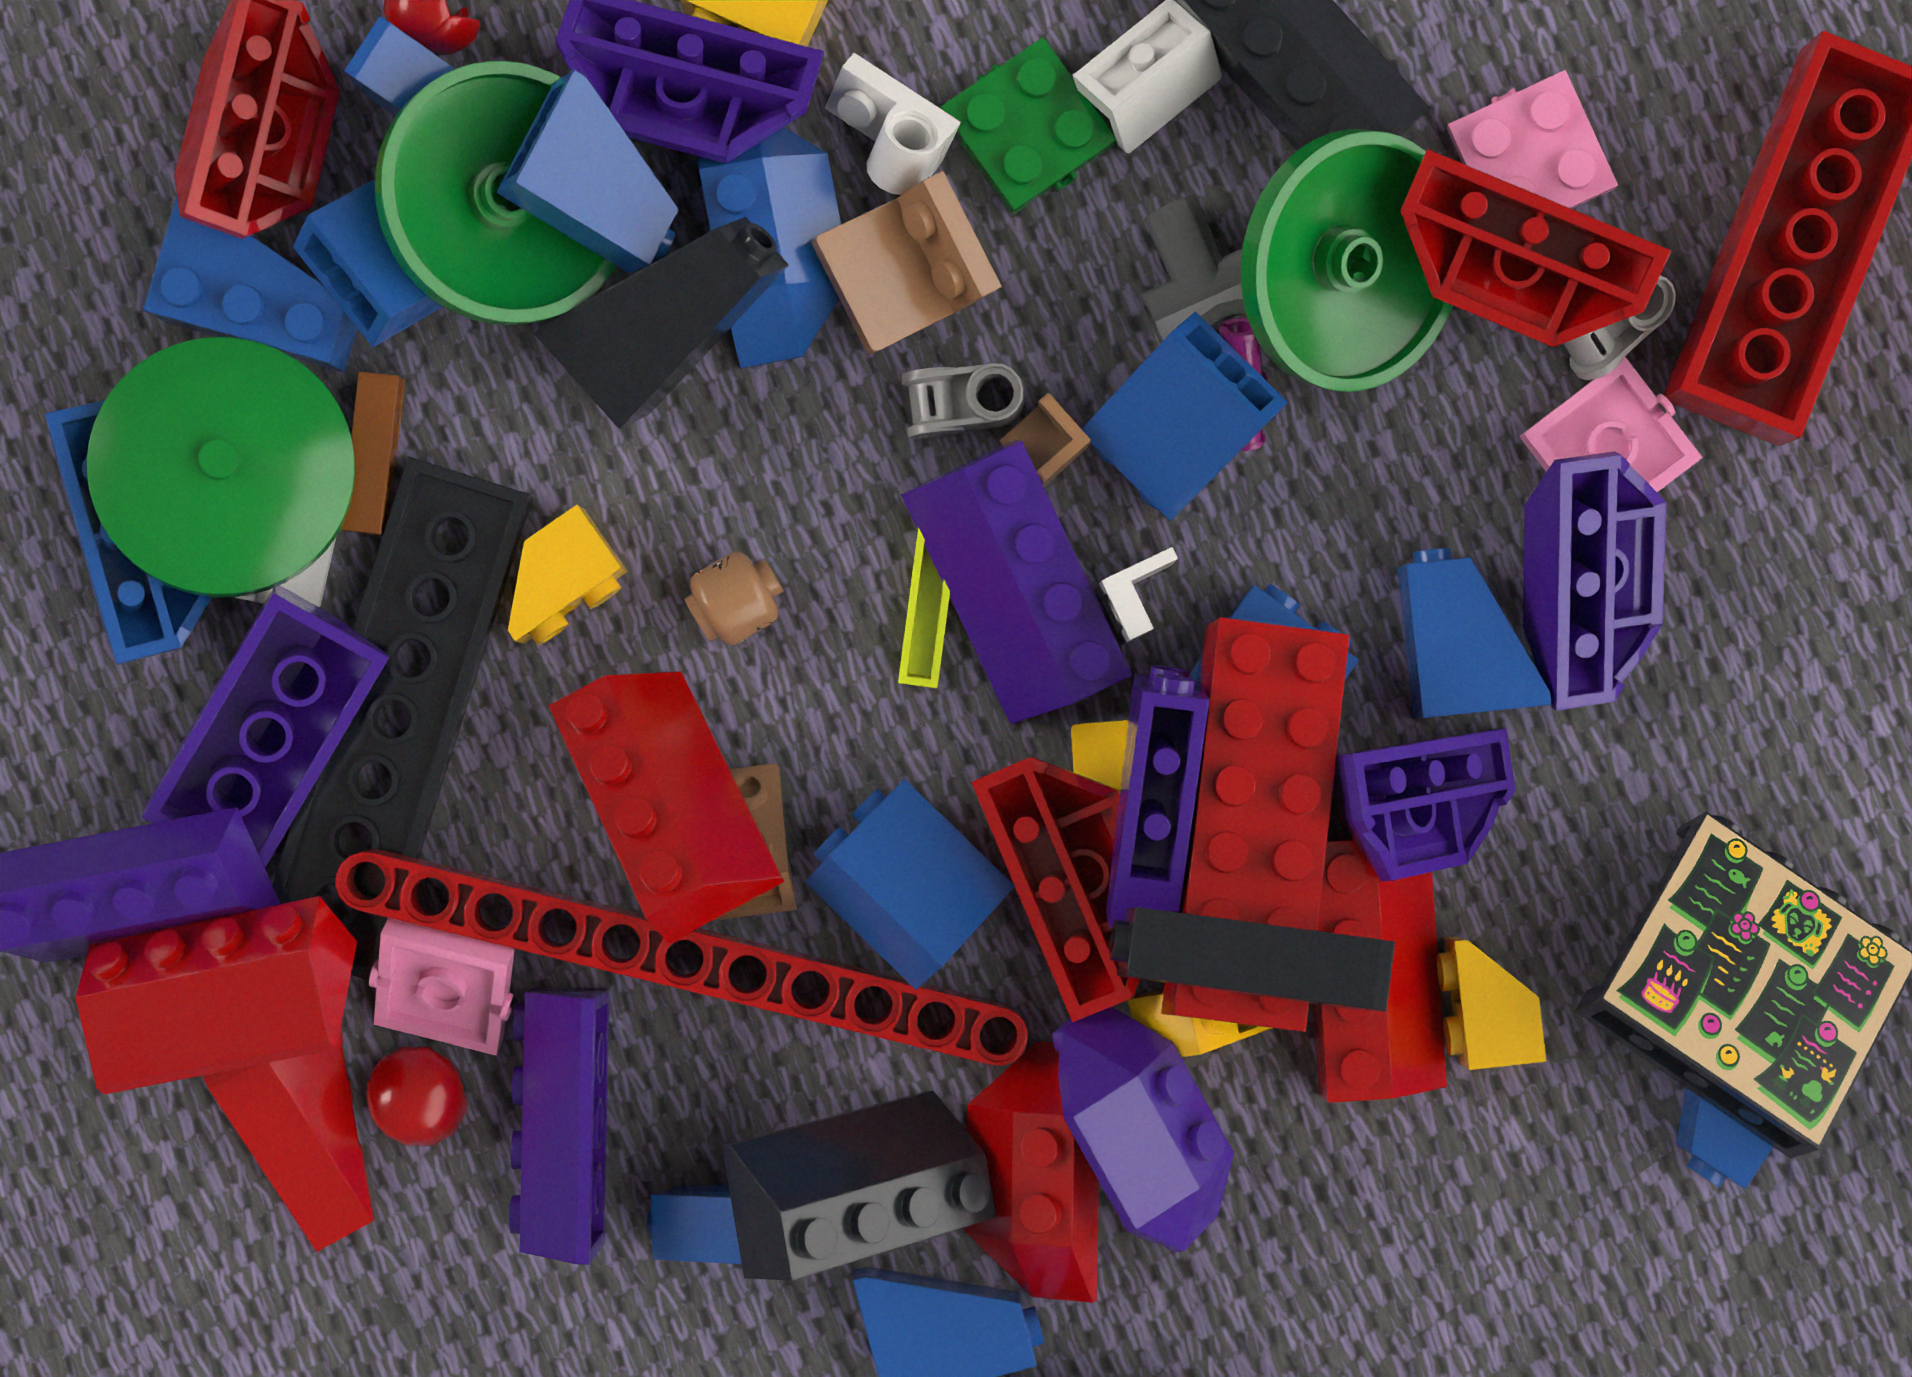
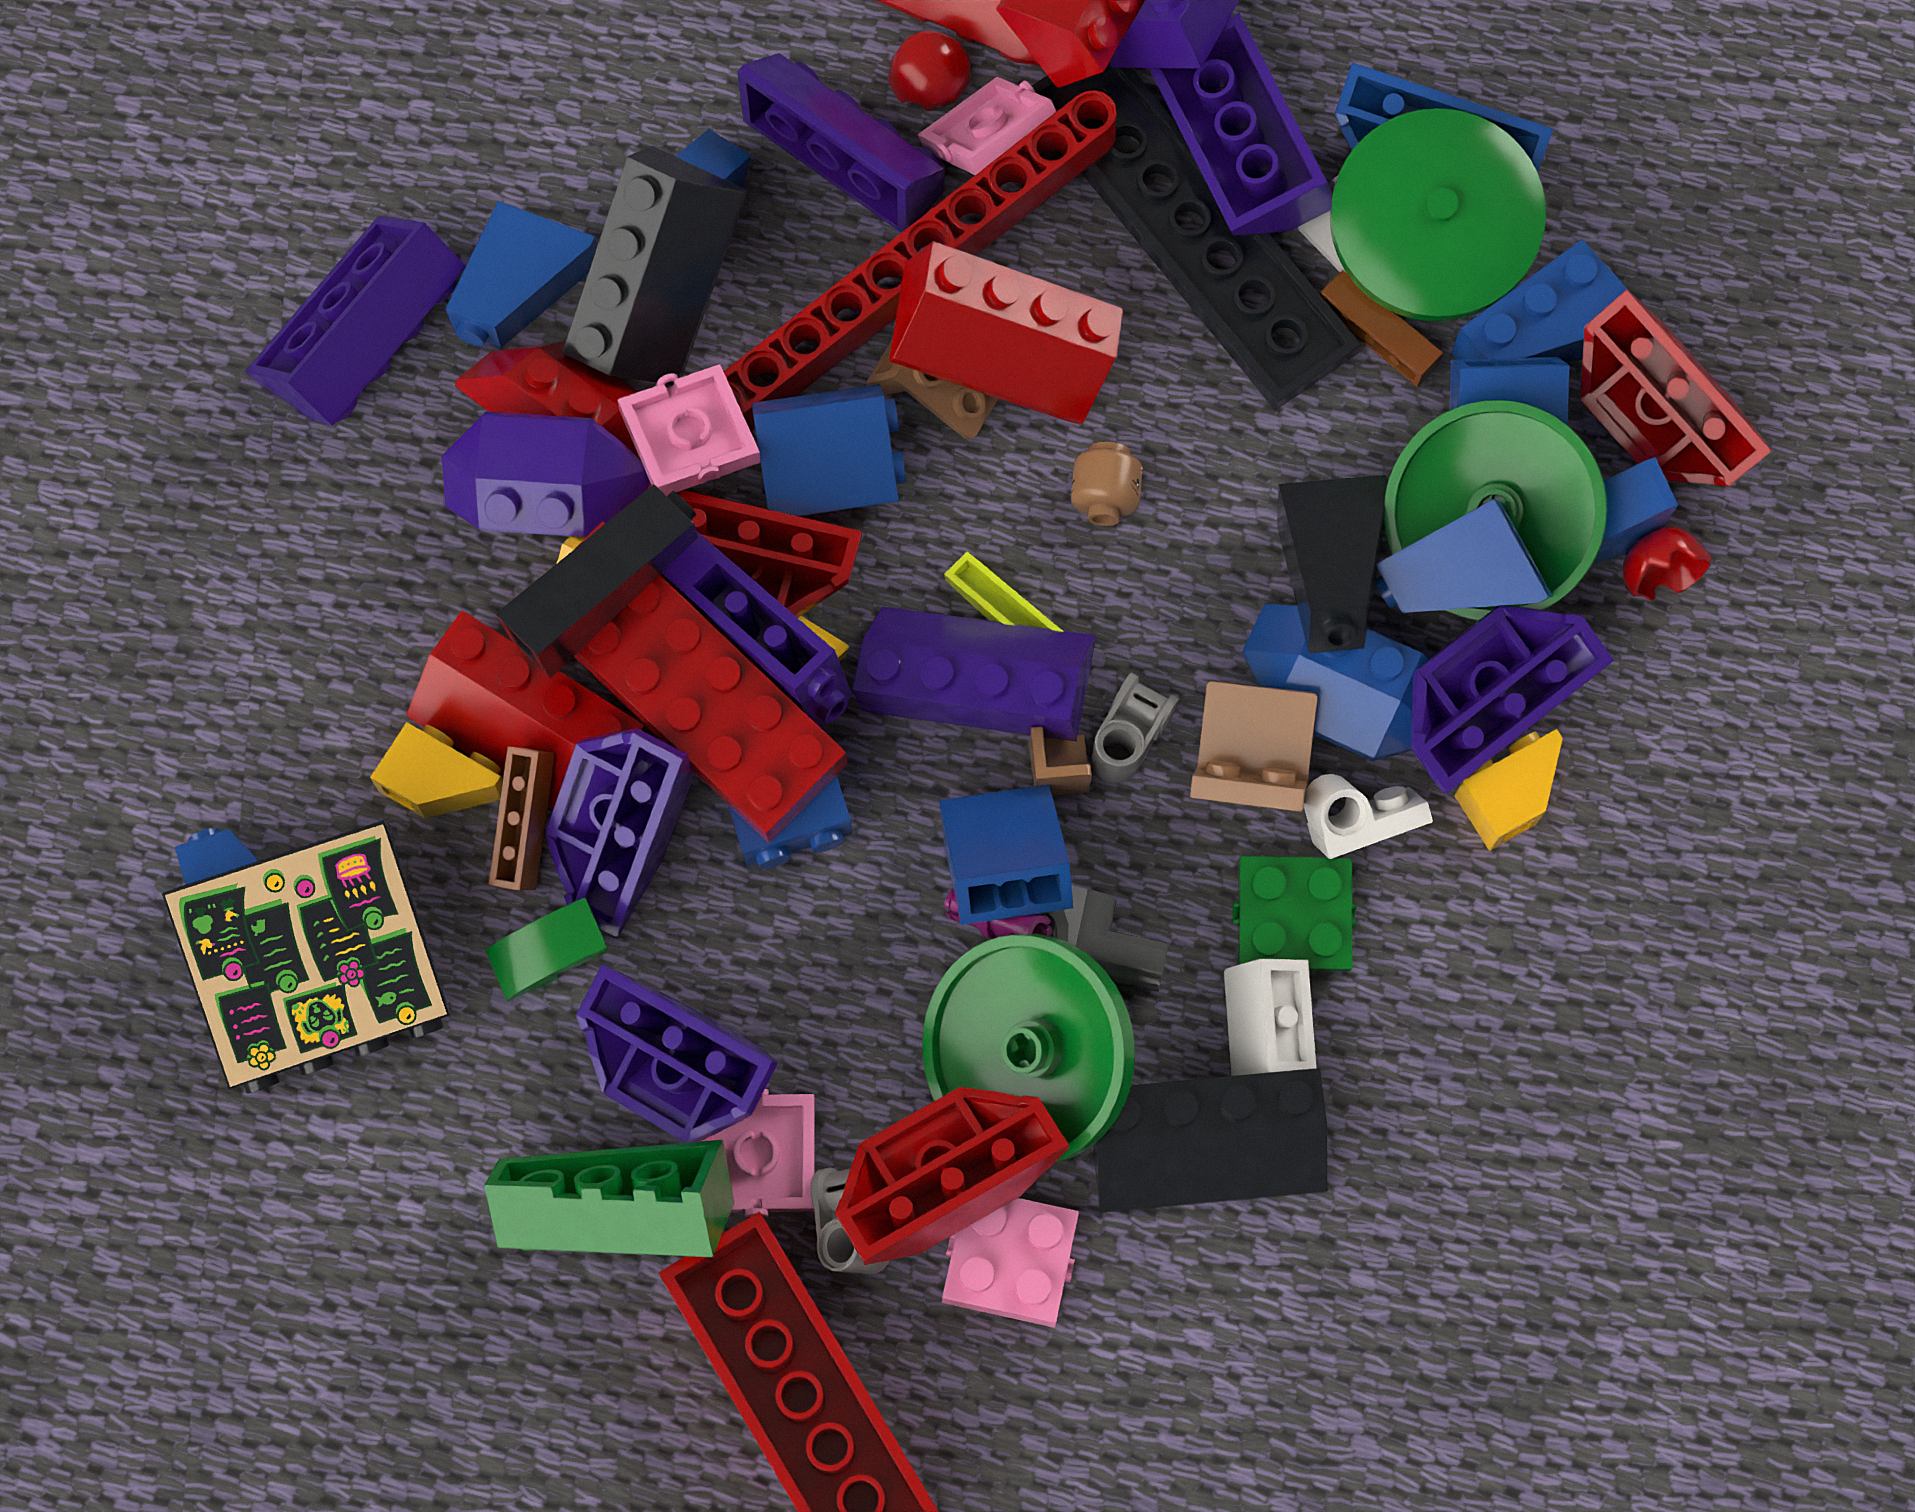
camera: 125 degrees right, 15 degrees down
(558, 572) = (1210, 389): yellow slope -> none
(997, 1021) = (689, 430): none -> bright pink plate
(1122, 599) = (905, 723): white panel -> none
(1460, 641) = (699, 941): blue slope -> none
(1474, 893) = (521, 818): none -> dark orange piece
(1569, 778) = (546, 948): none -> green slope
(1764, 524) = (614, 1200): none -> wedge

